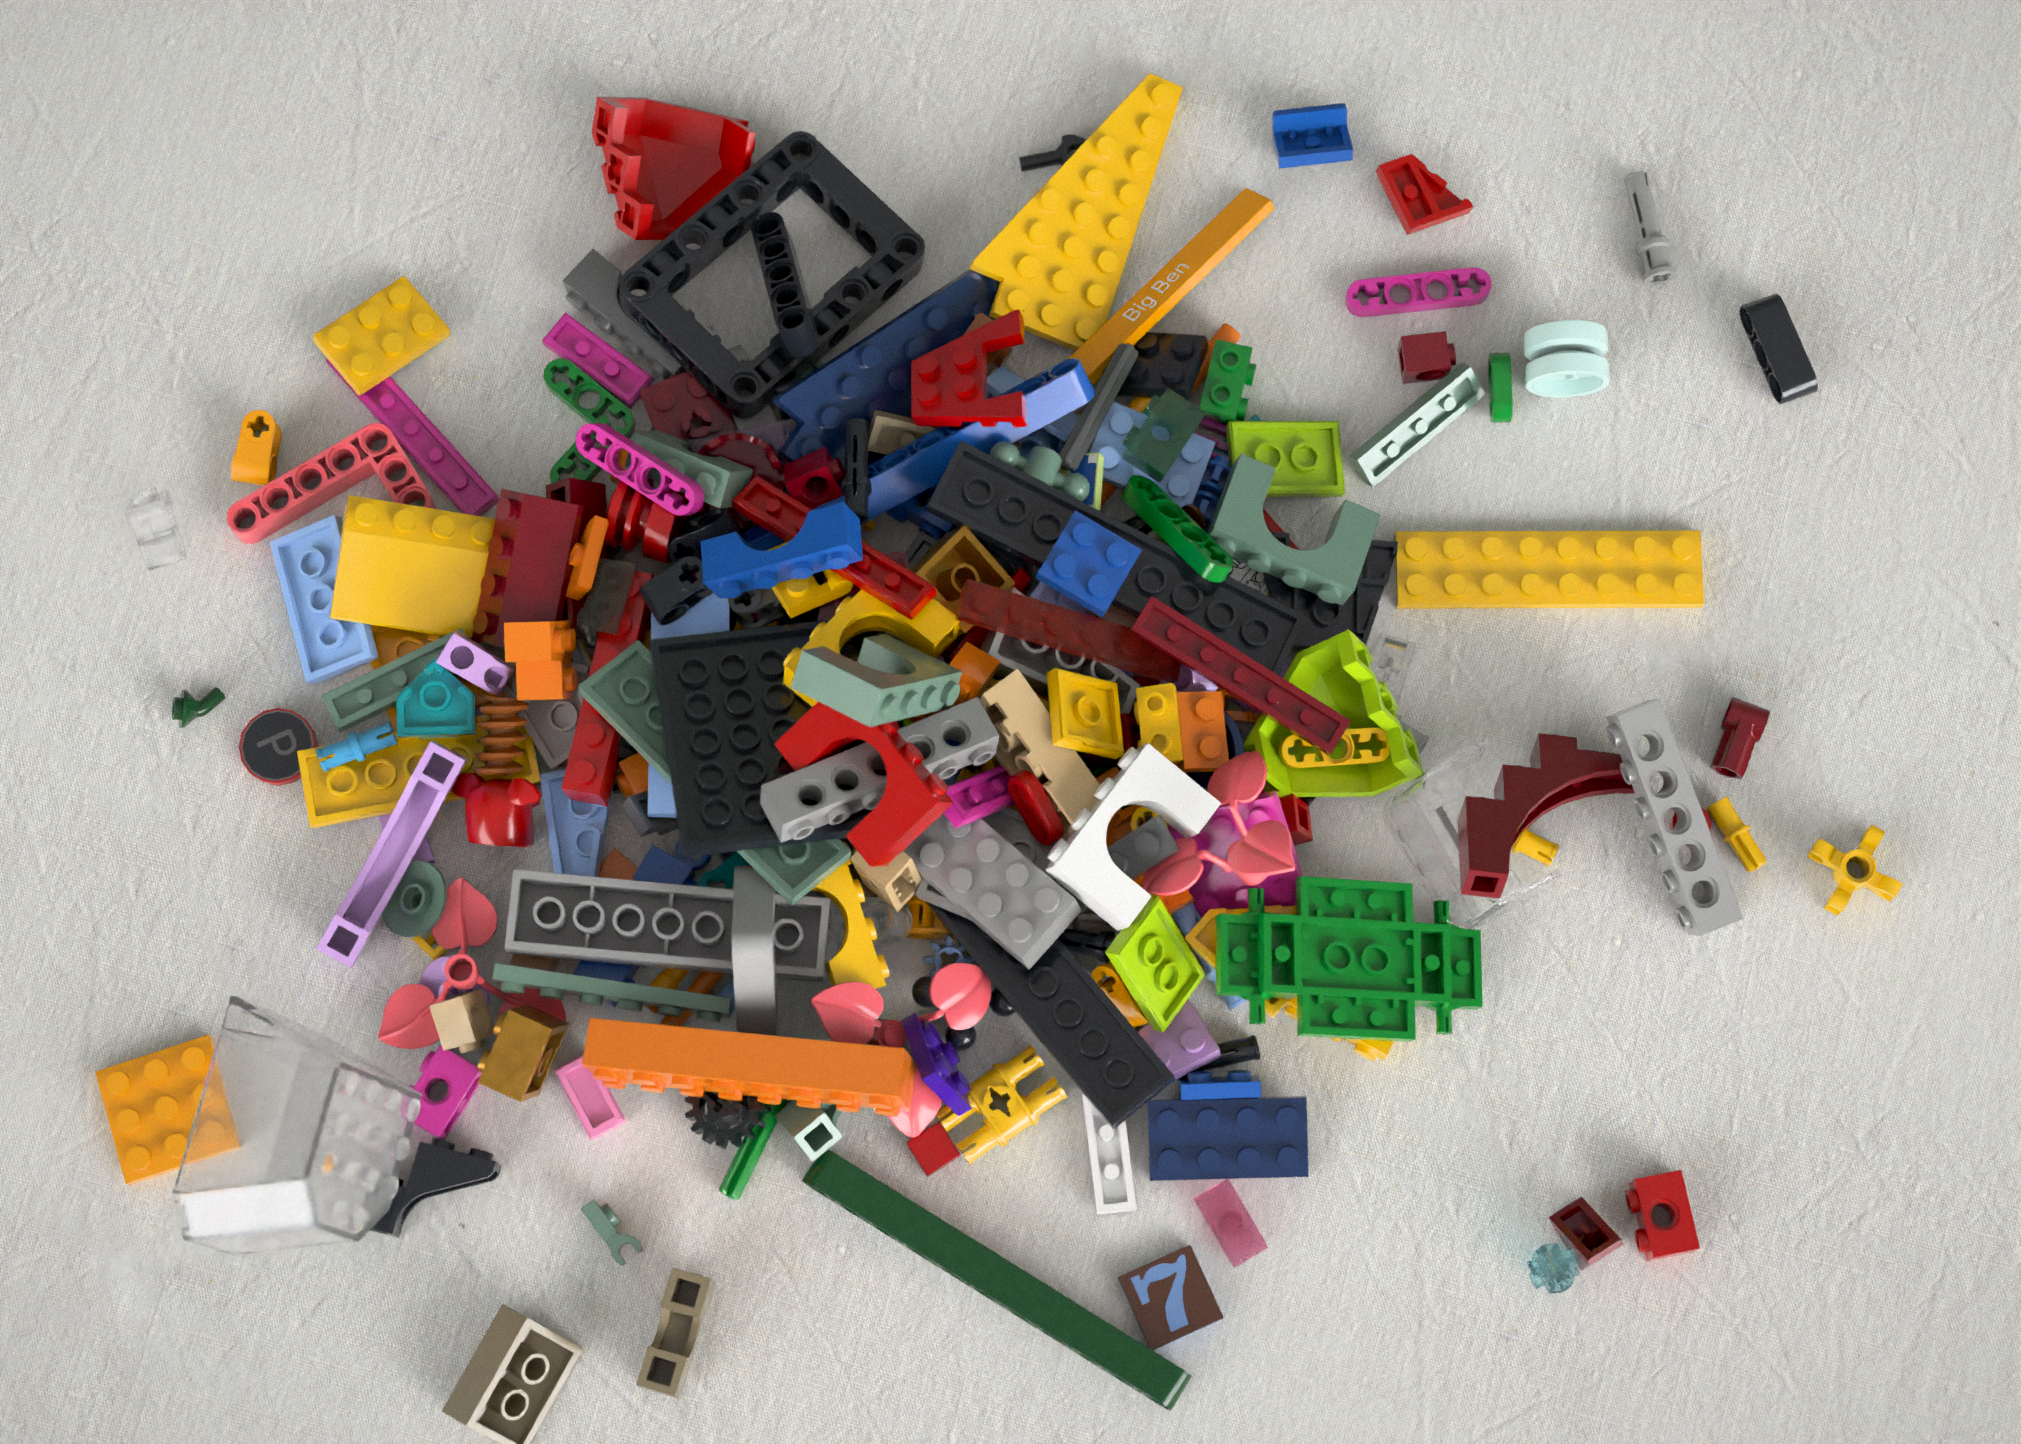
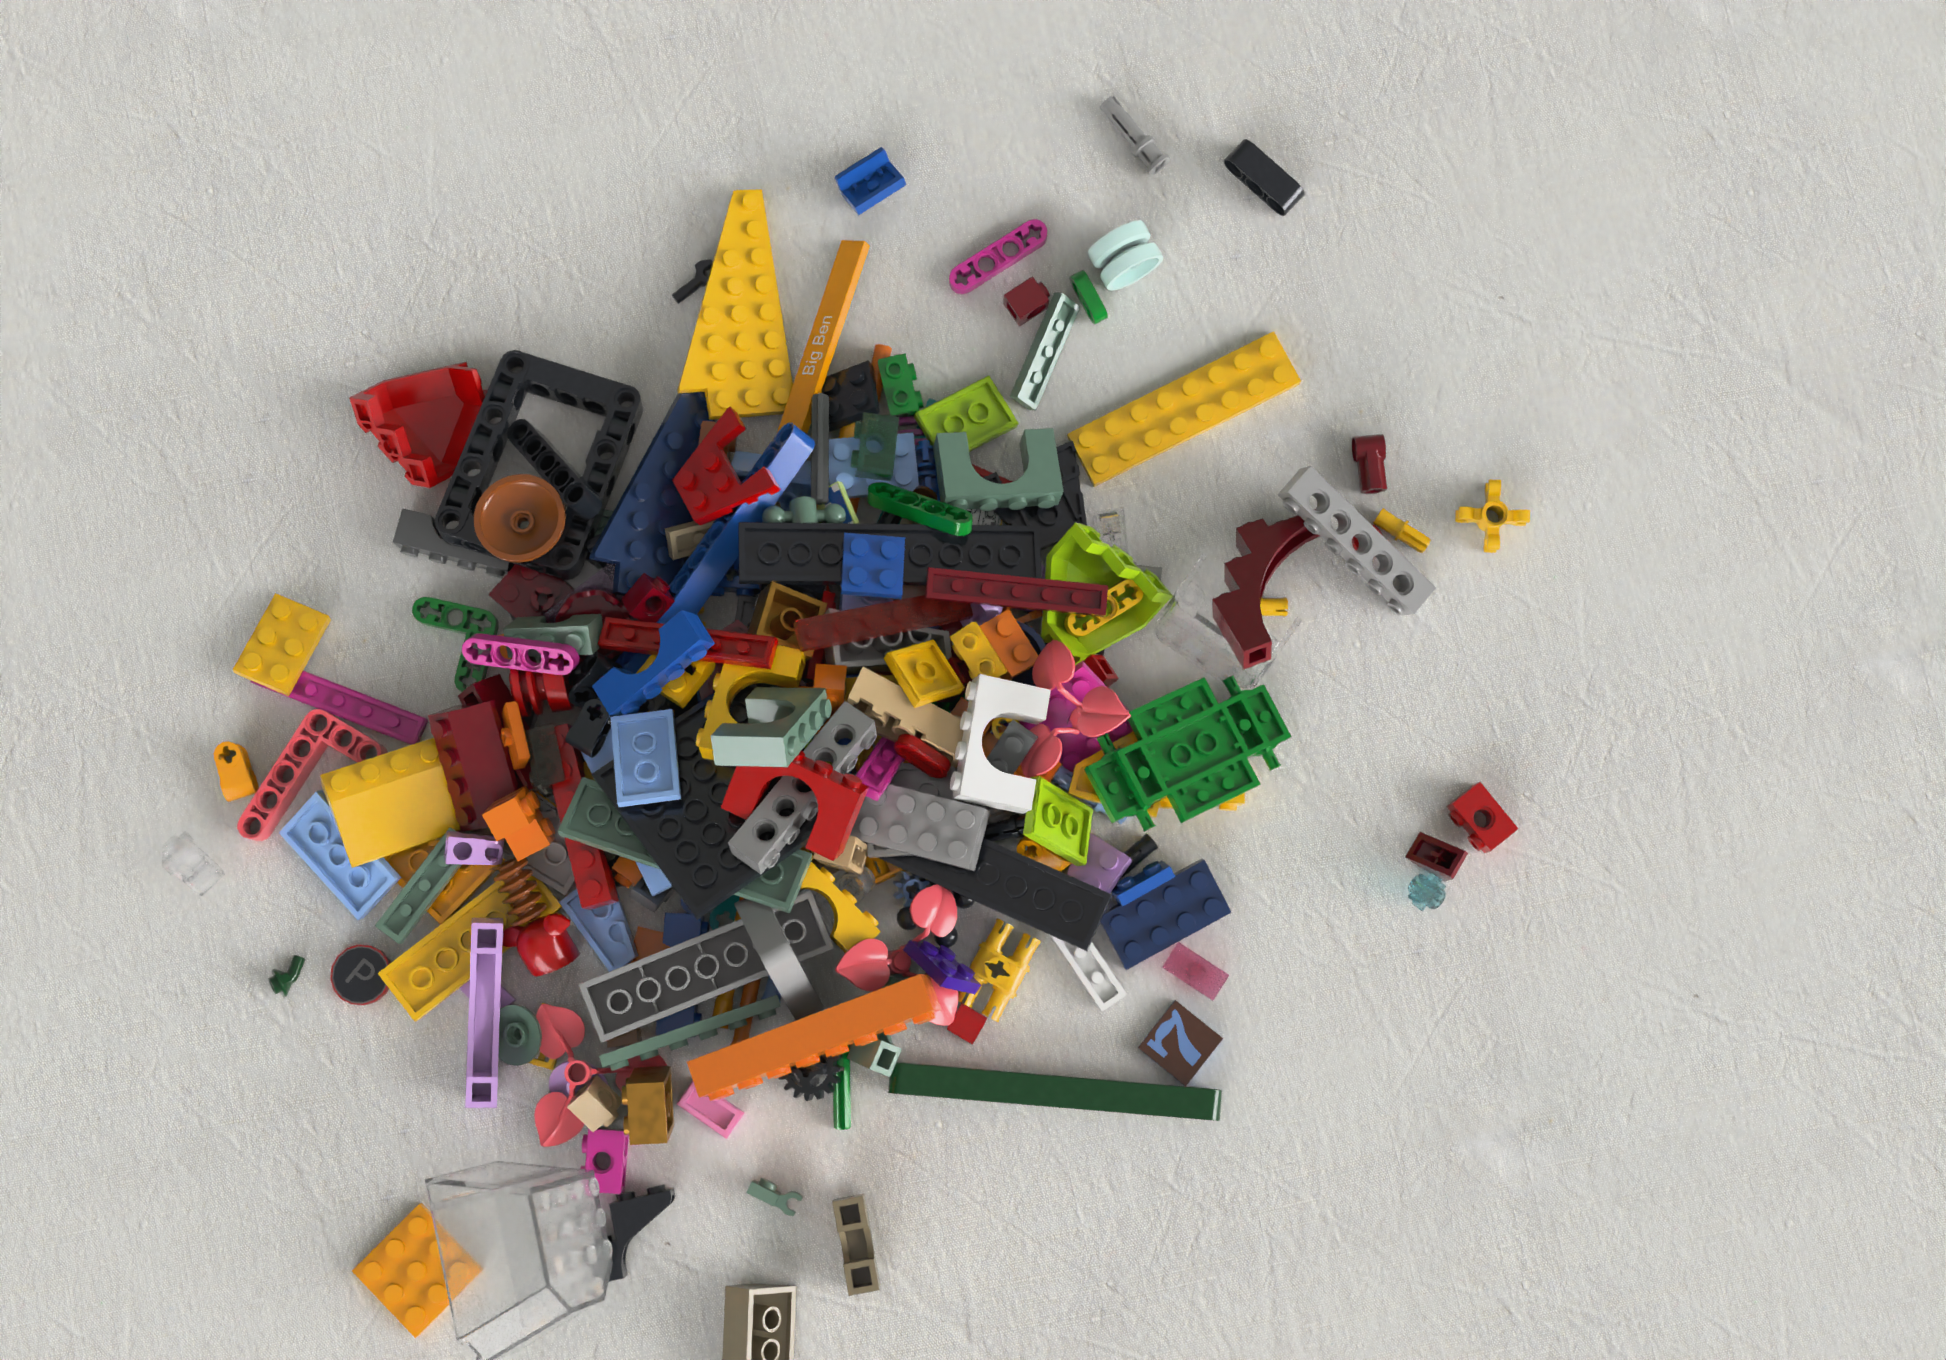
camera: 30 degrees left, 5 degrees up
(356, 746) = (418, 949): dark azure pin -> none
(435, 706) = (460, 892): teal plate -> none
(598, 360) = (446, 585): dark pink tile -> none
(714, 298) = (508, 505): none -> dark orange dish
(719, 650) = (645, 758): none -> light blue plate
(857, 438) = (663, 556): black pin -> none
(1419, 195) = (964, 187): red wing -> none

